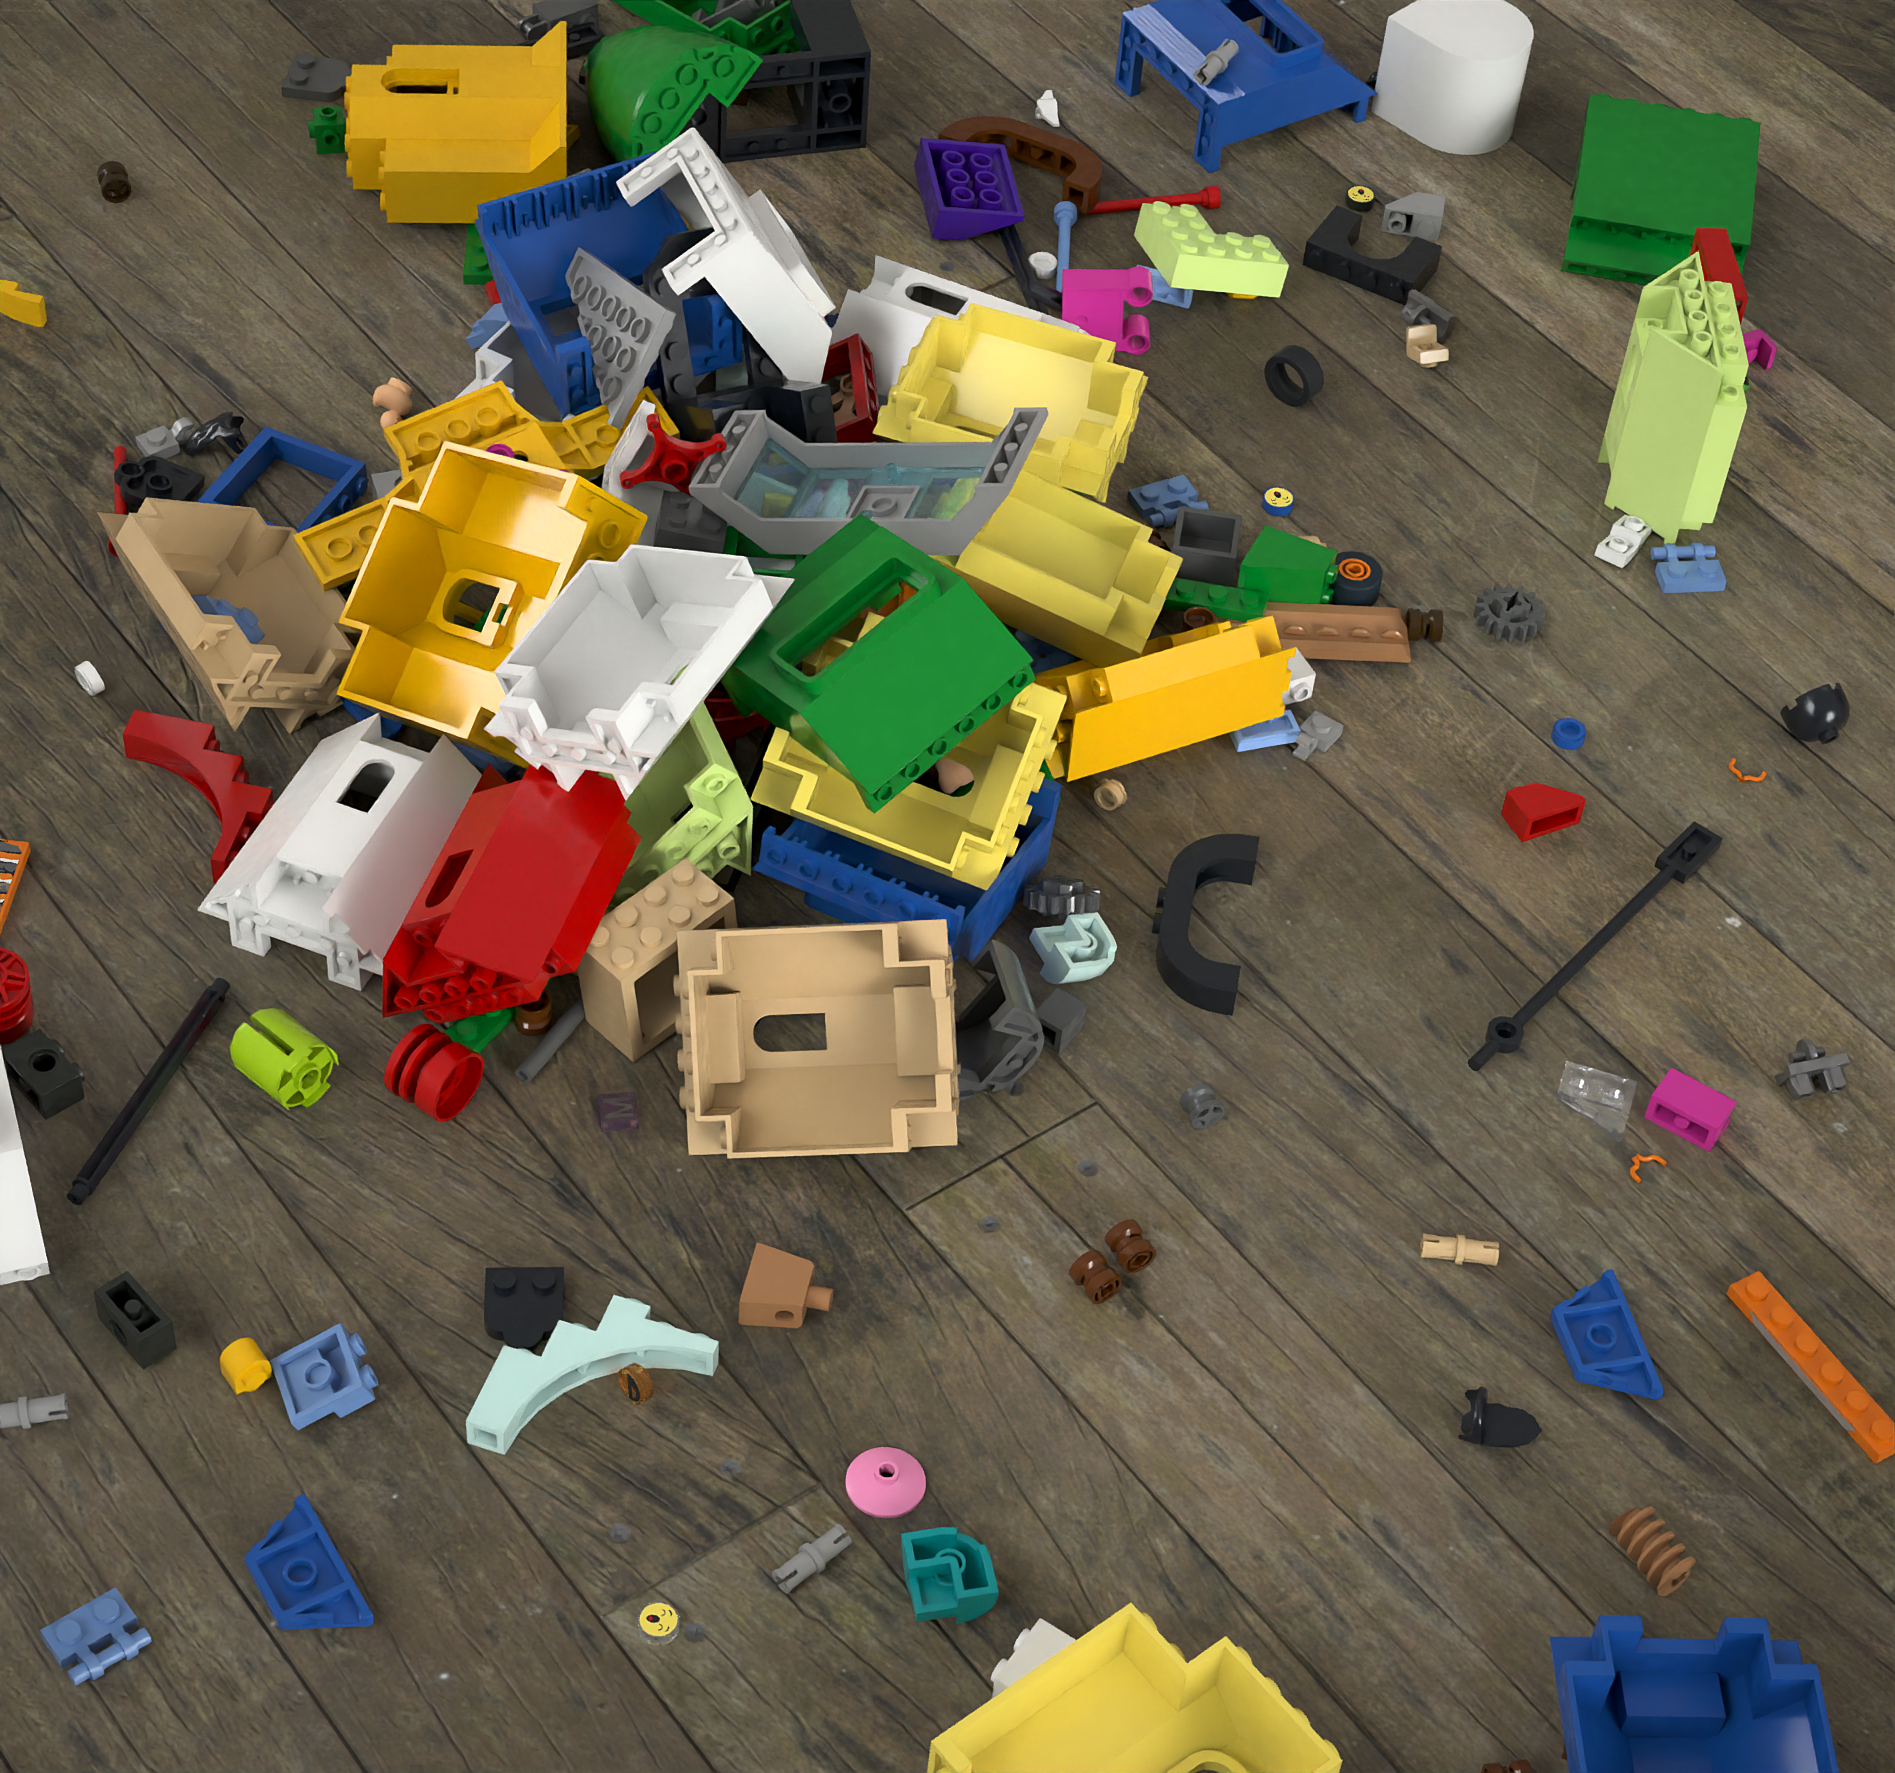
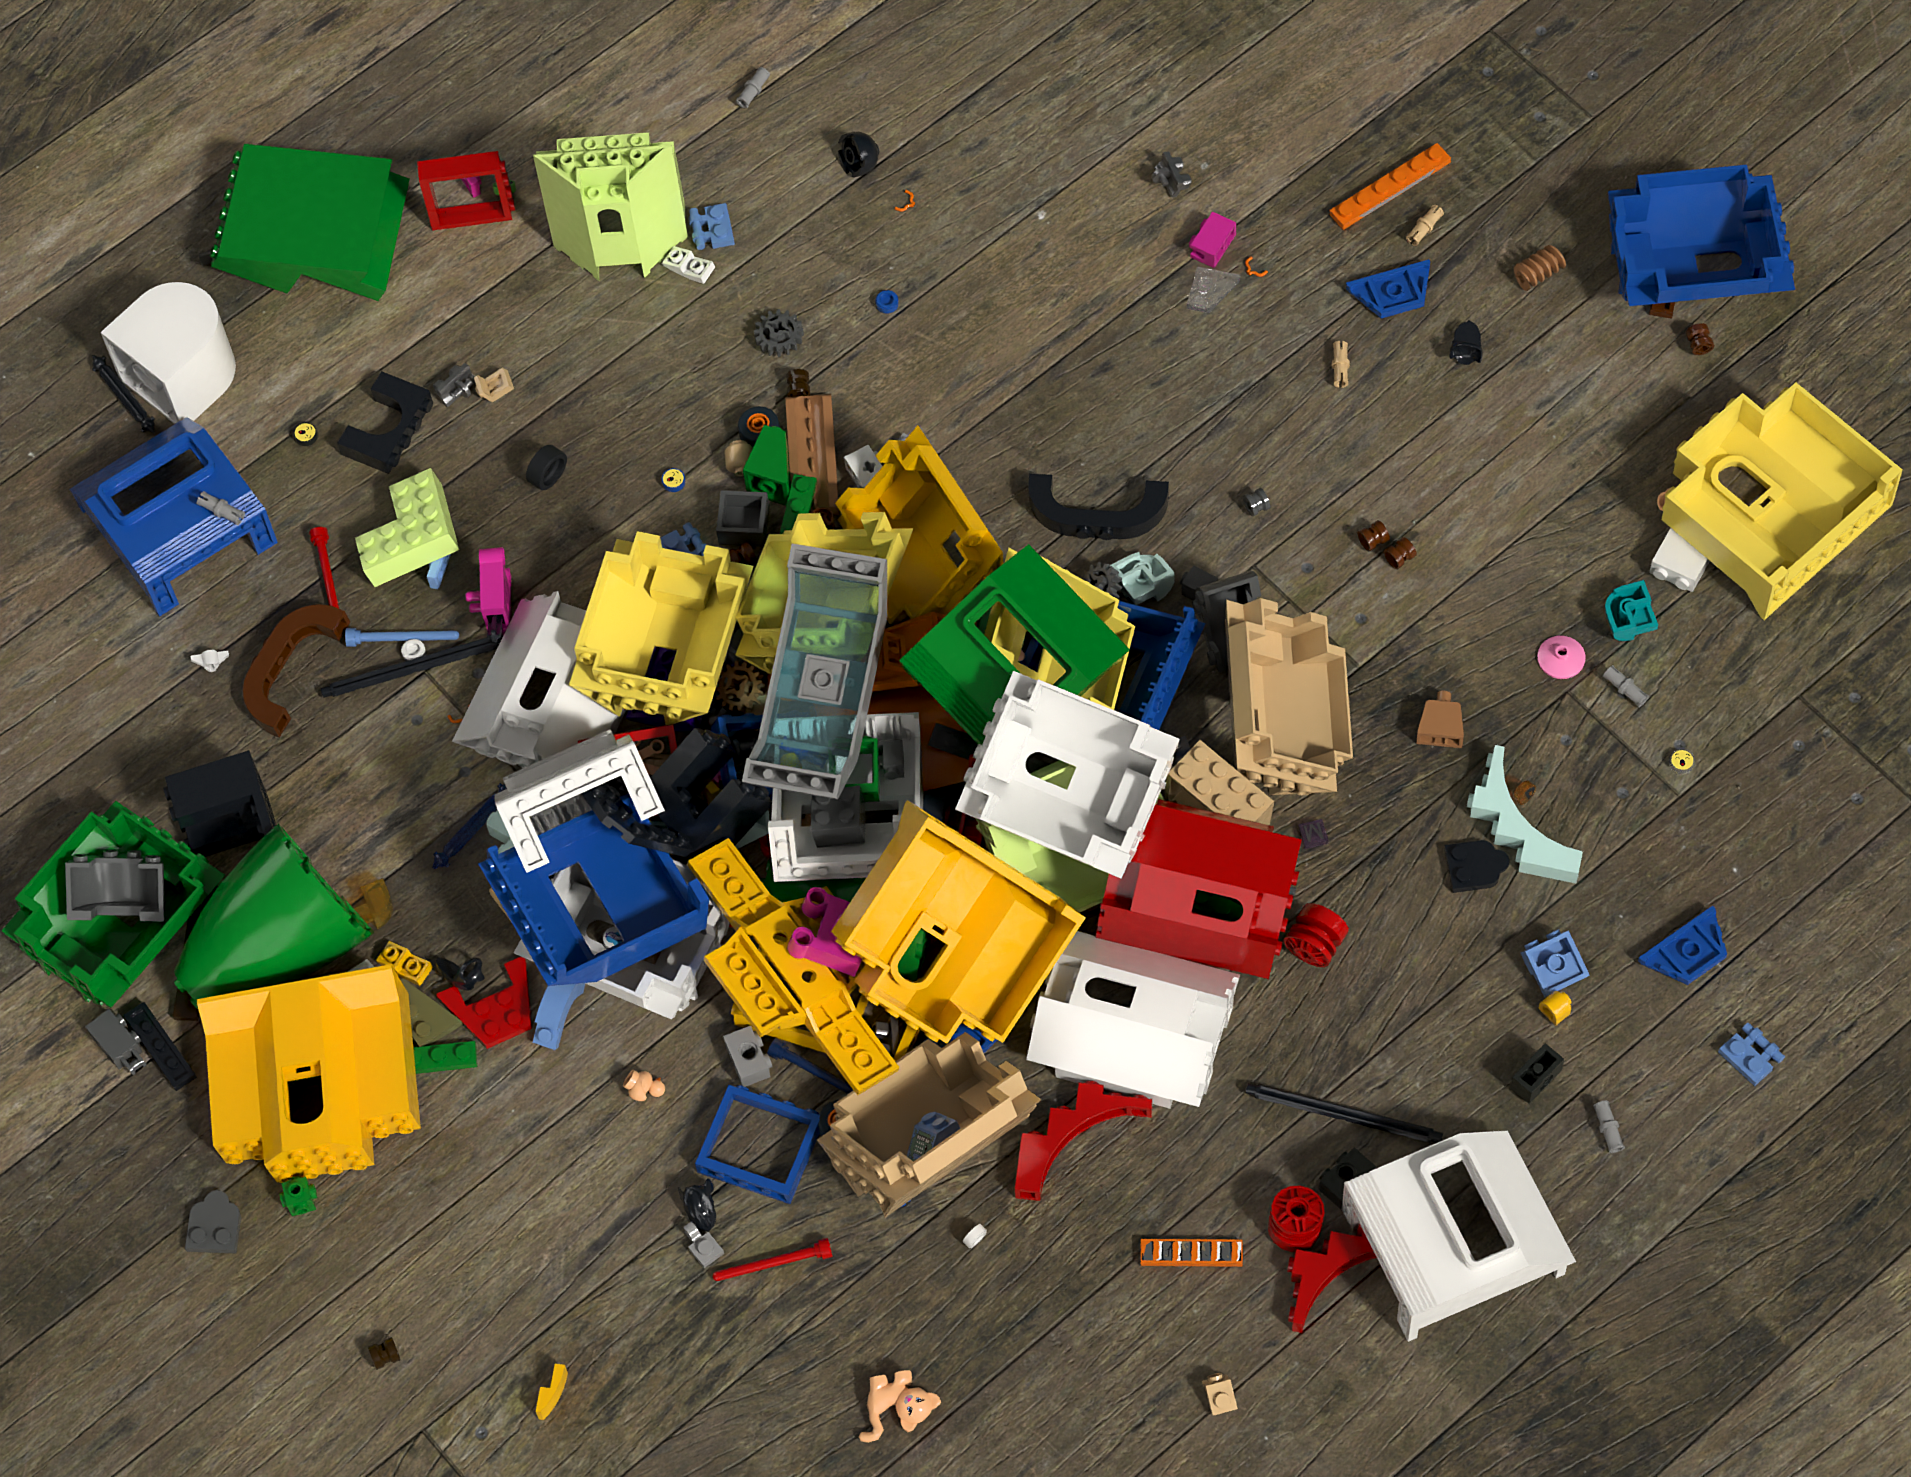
camera: 85 degrees left, 15 degrees up
(156, 479) = (761, 1234): black plate -> none
(282, 1057) = (1326, 1038): lime cylinder -> none
(622, 328) = (653, 873): light grey wing -> none
(671, 458) = (802, 816): red piece -> none
(966, 188) = (336, 704): dark purple slope -> none
(1415, 216) = (331, 391): light grey slope -> none
(1541, 810) = (969, 318): red slope -> none
(1677, 861) = (1003, 240): black bar -> none
(1737, 1401) = (1424, 225): none -> tan pin

